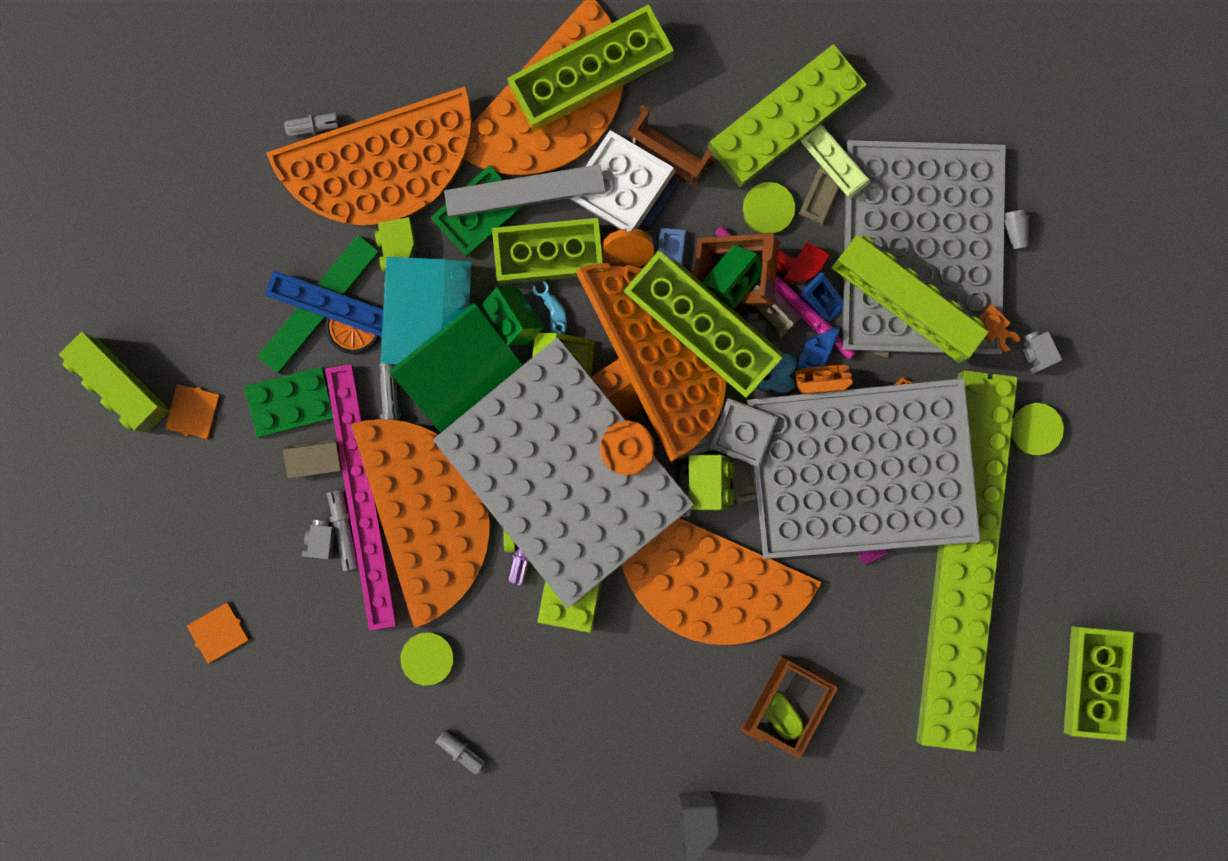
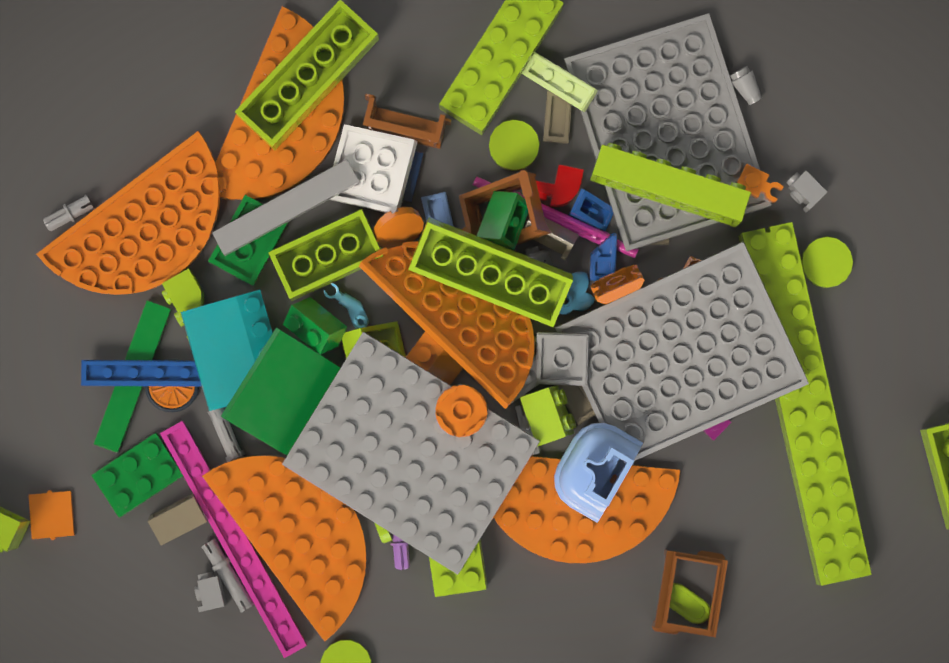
camera: 20 degrees left, 0 degrees up
(733, 546) = (589, 464): none -> light blue piece

